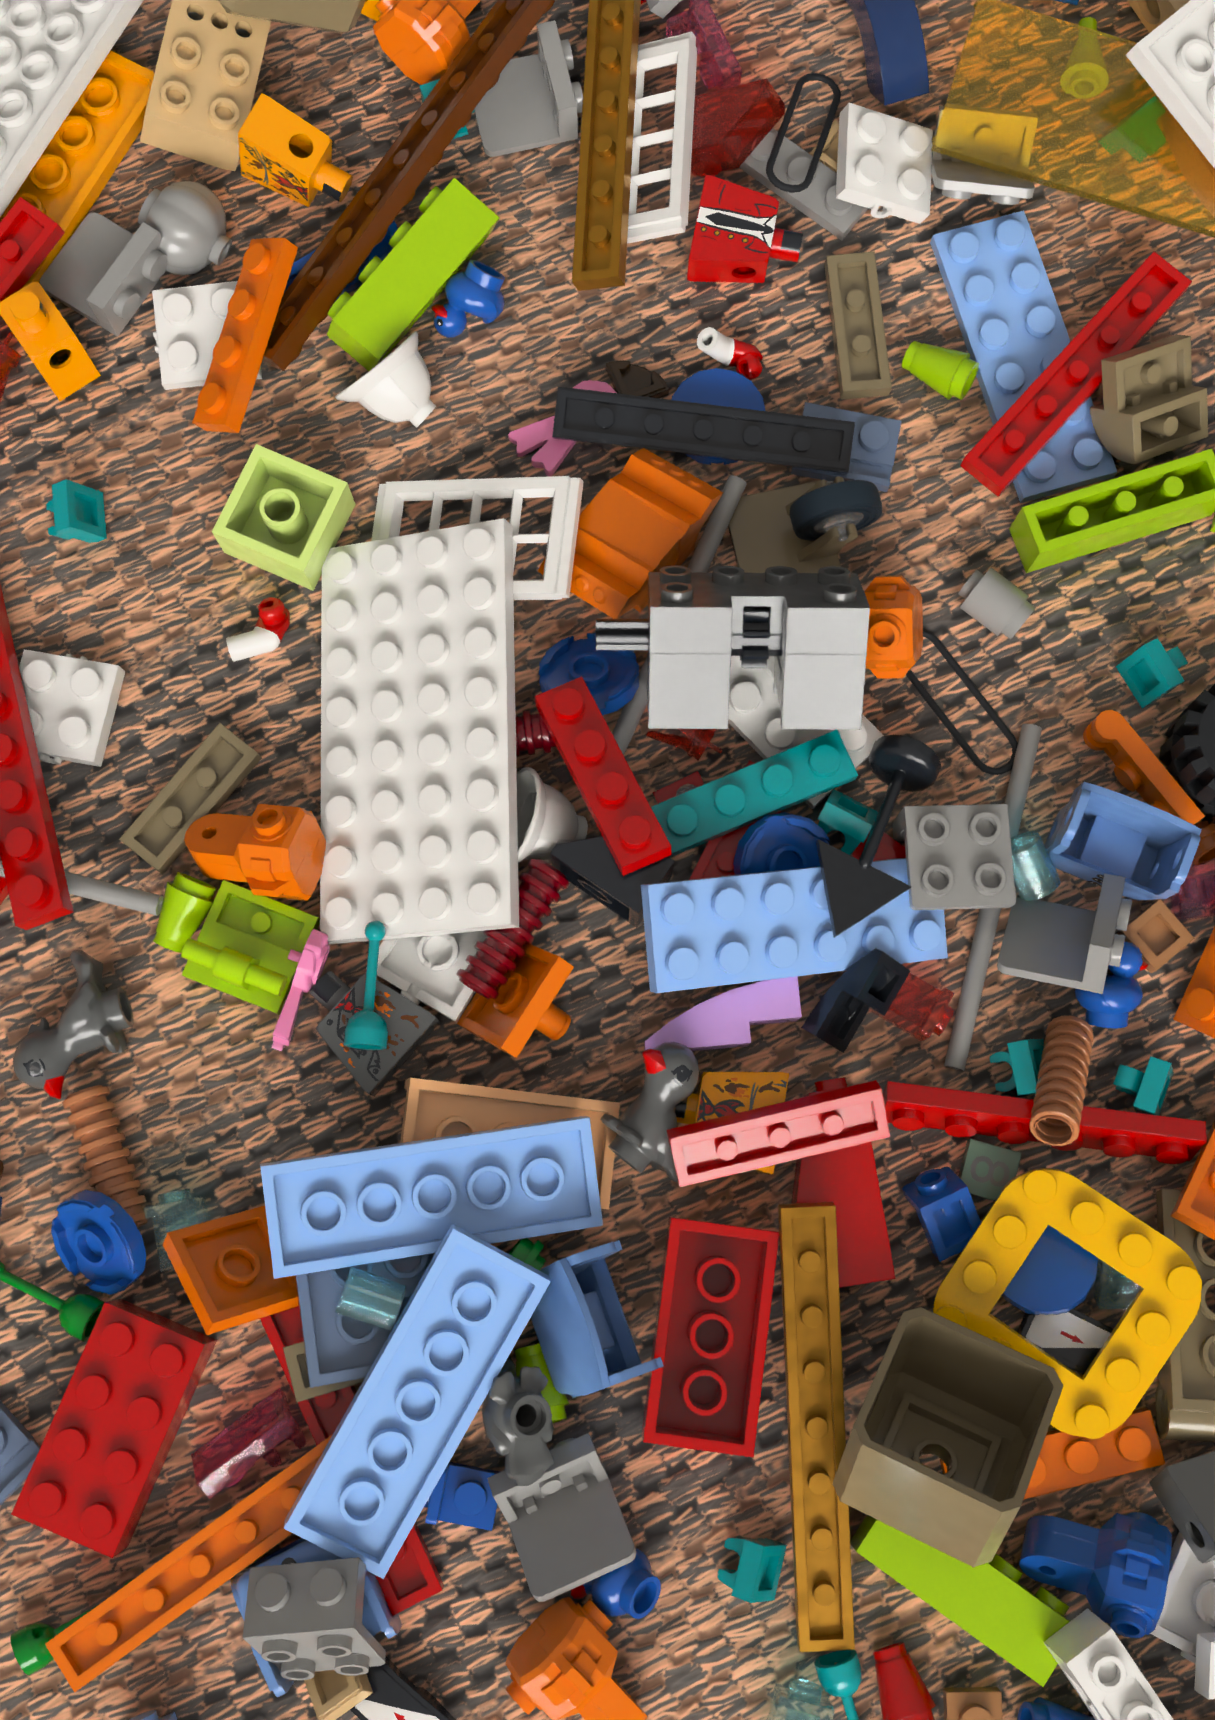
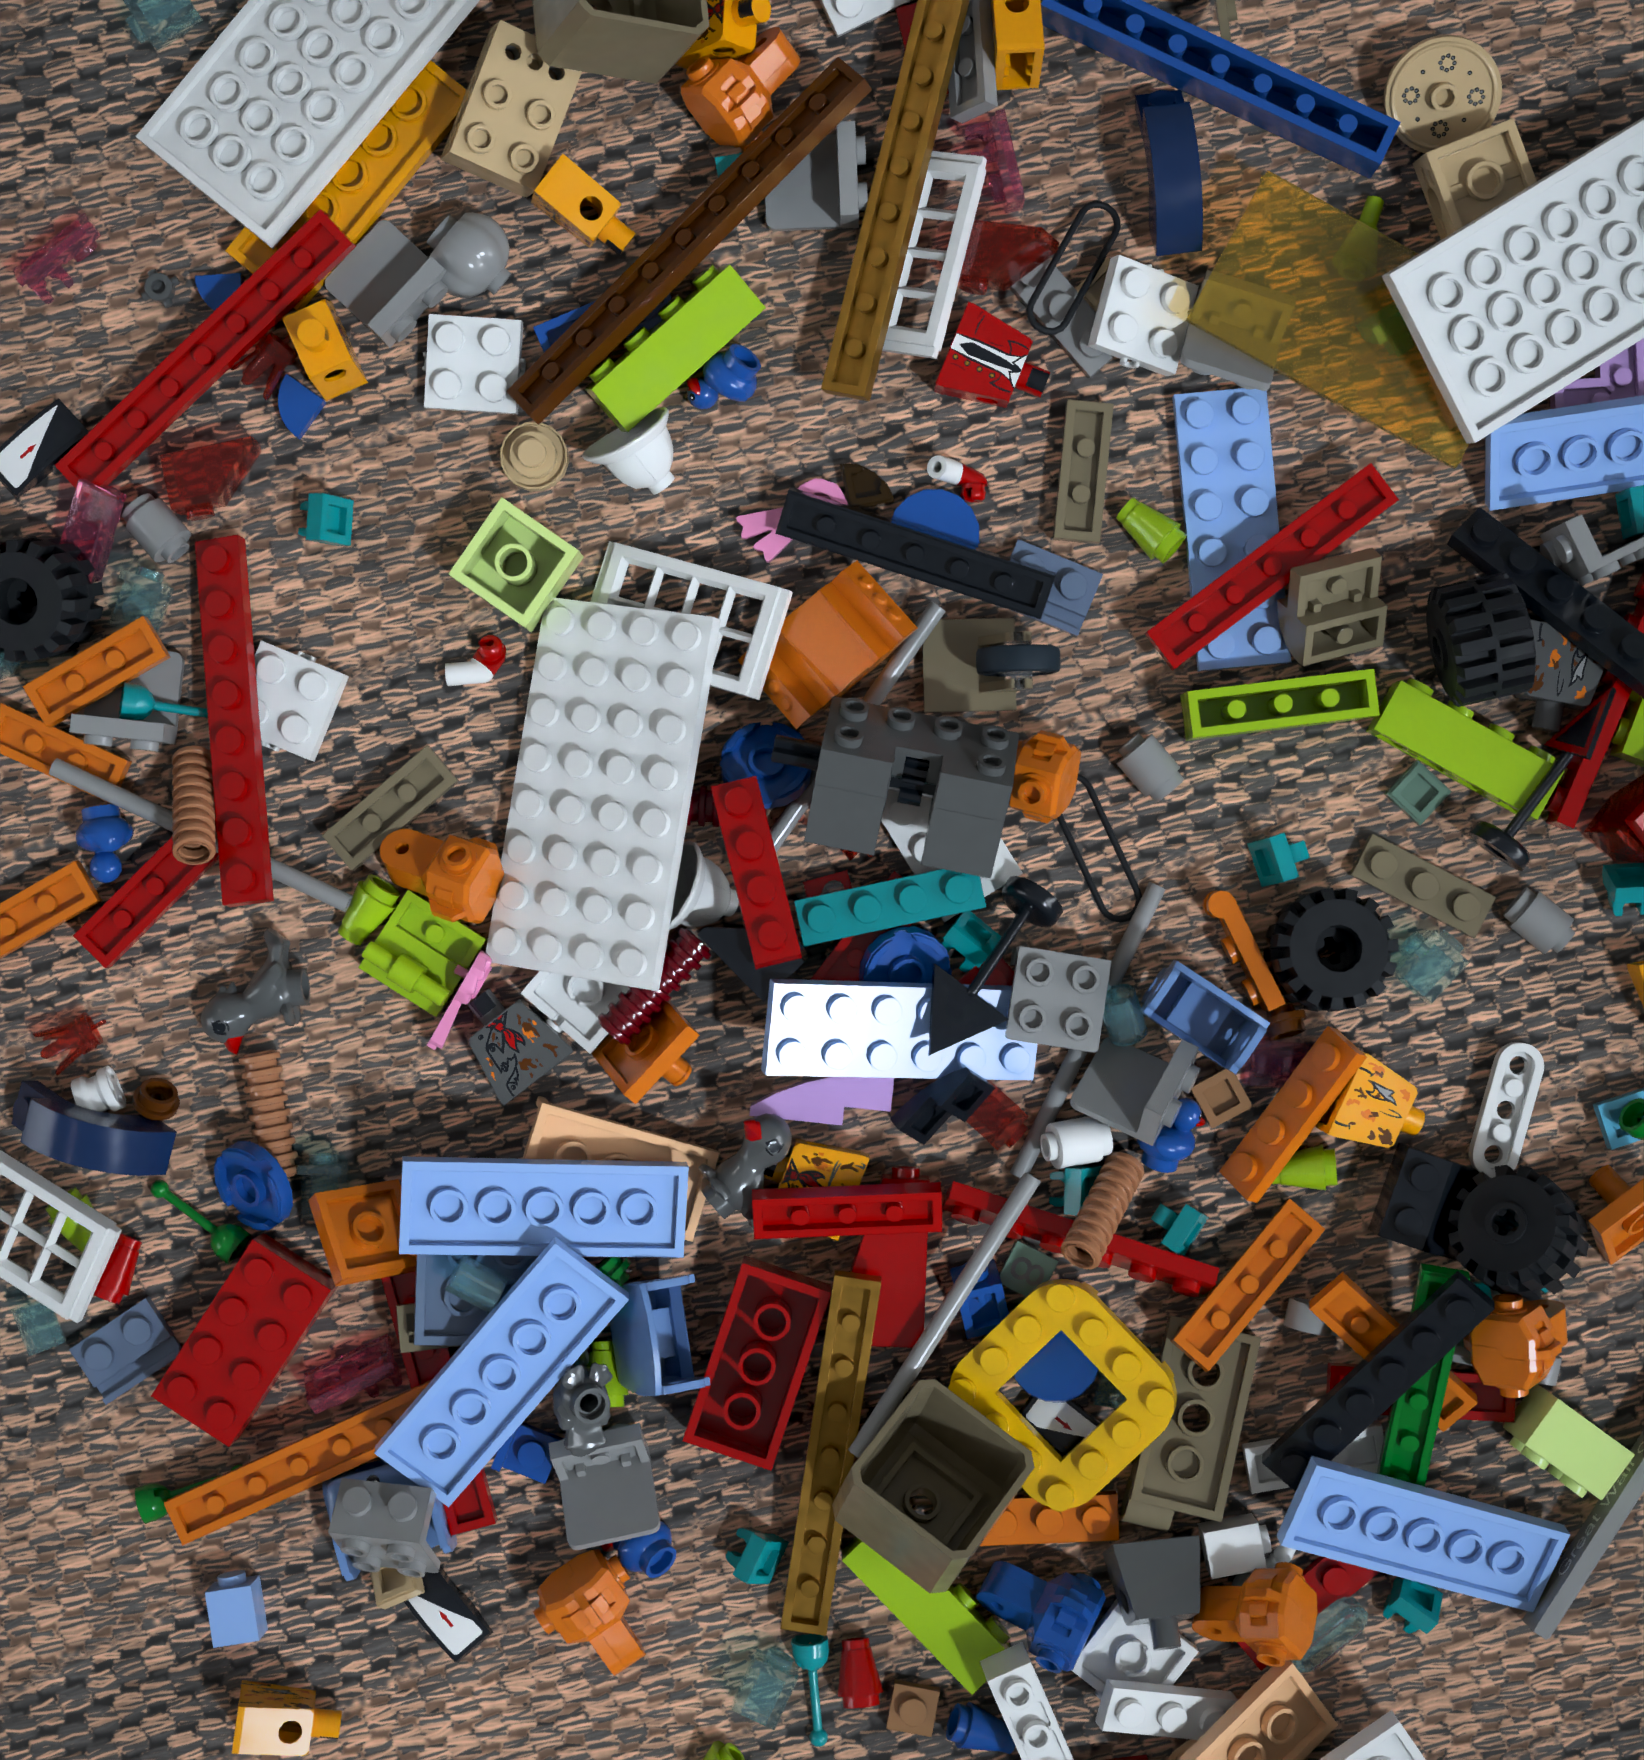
camera: 15 degrees right, 10 degrees up
(30, 408) = (298, 406): none -> blue tile
(245, 335) = (509, 383): orange plate -> none
(285, 411) = (534, 456): none -> tan plate
(367, 1028) = (512, 1050): teal hinge -> none
(912, 1236) = (946, 1312): none -> light grey piece
(1012, 1013) = (1076, 1142): none -> white brick

